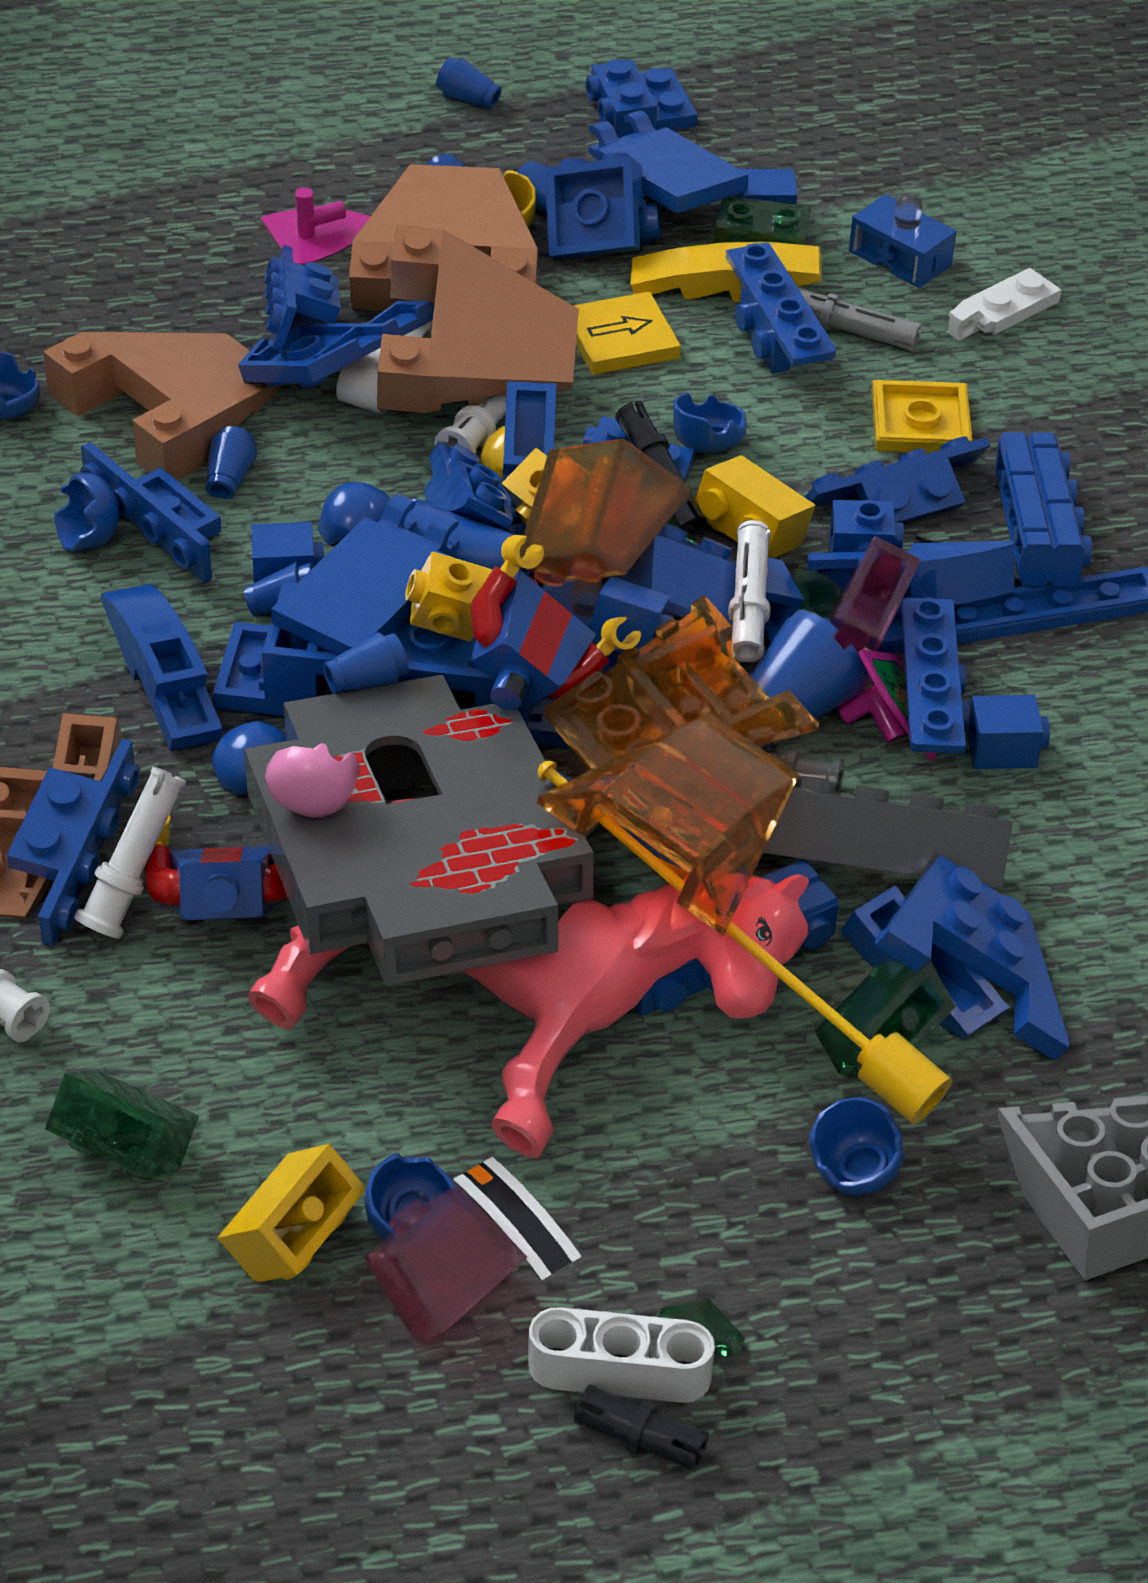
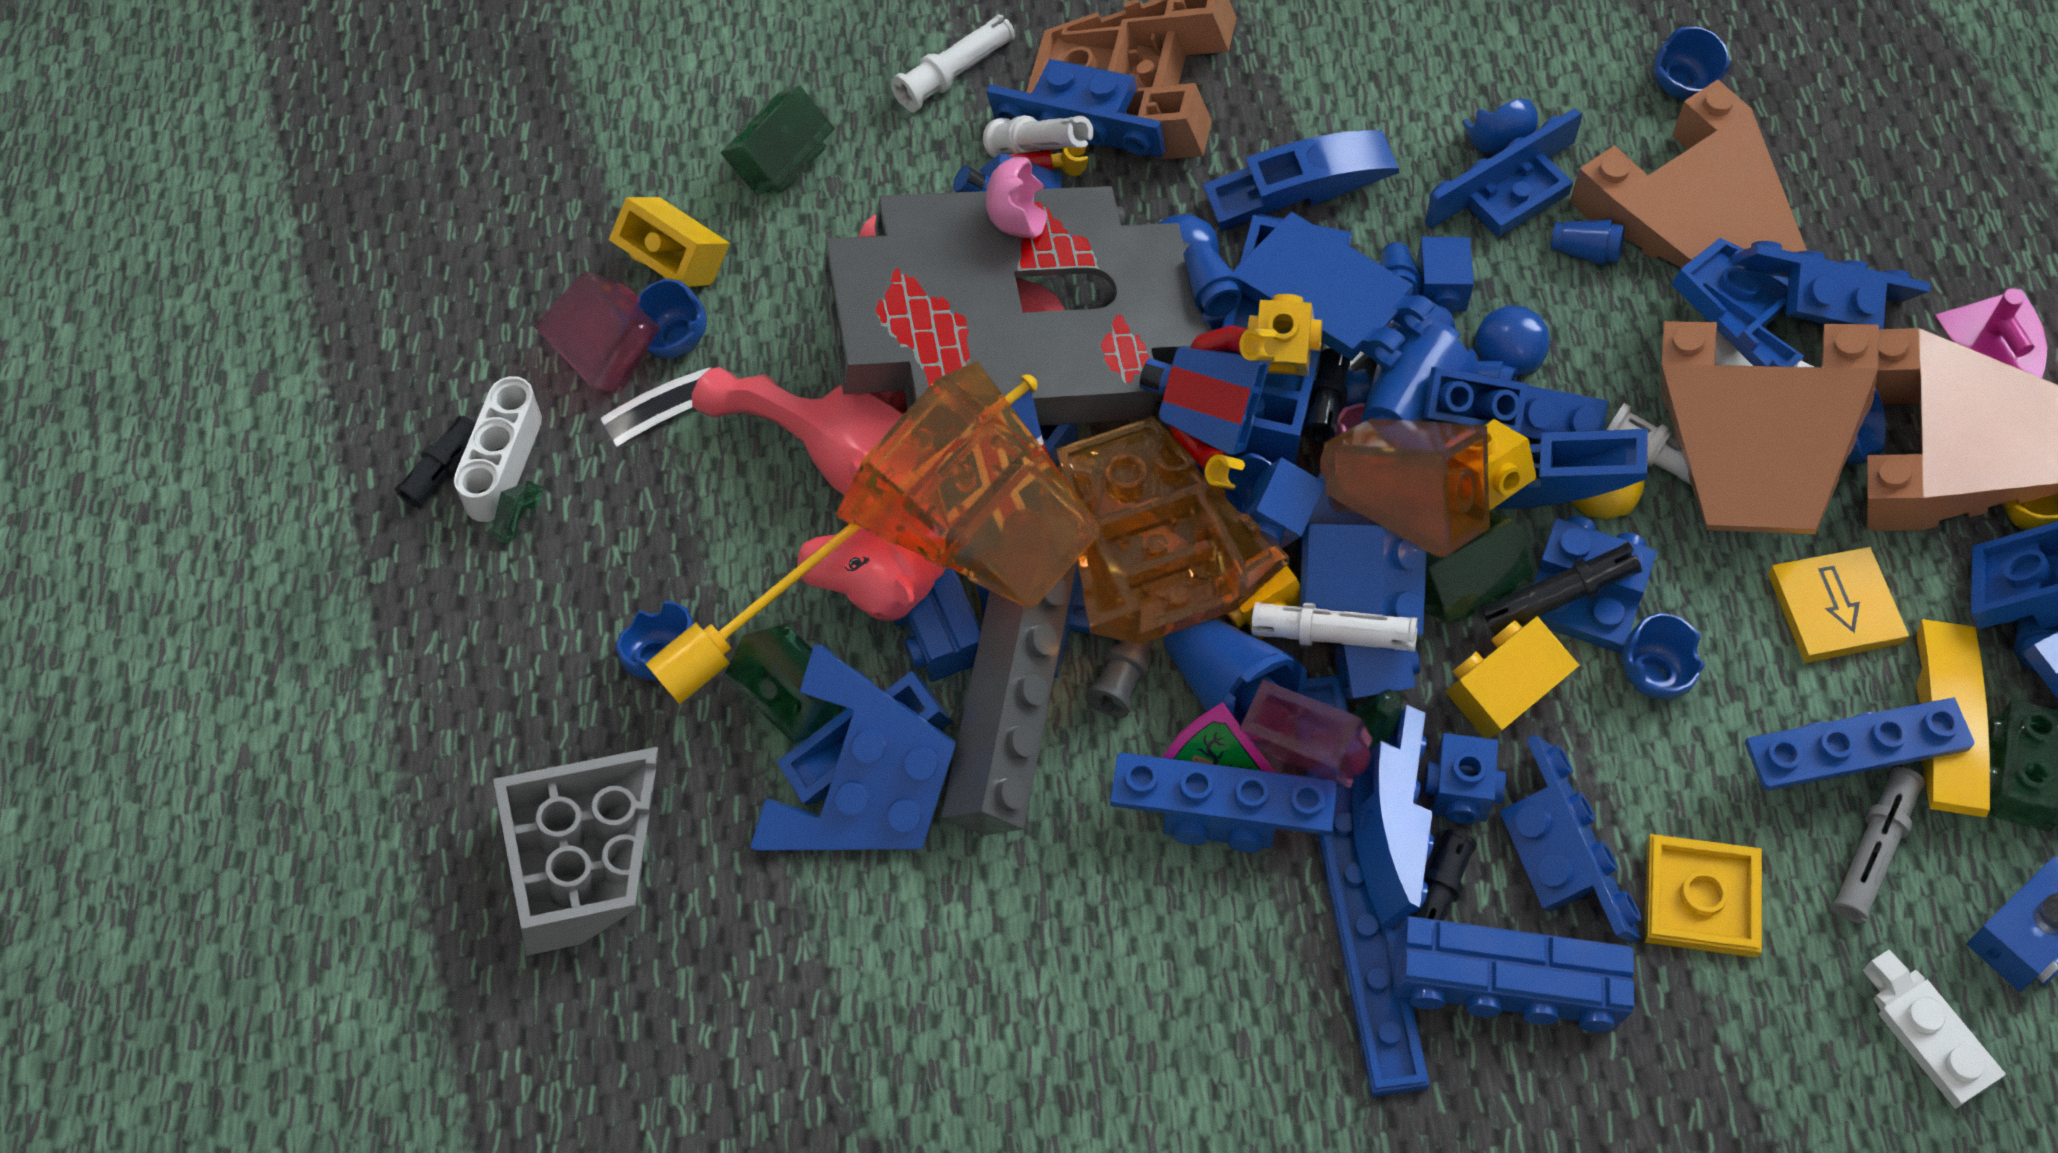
camera: 100 degrees right, 15 degrees up
(1006, 731) = (1162, 870): blue brick -> none

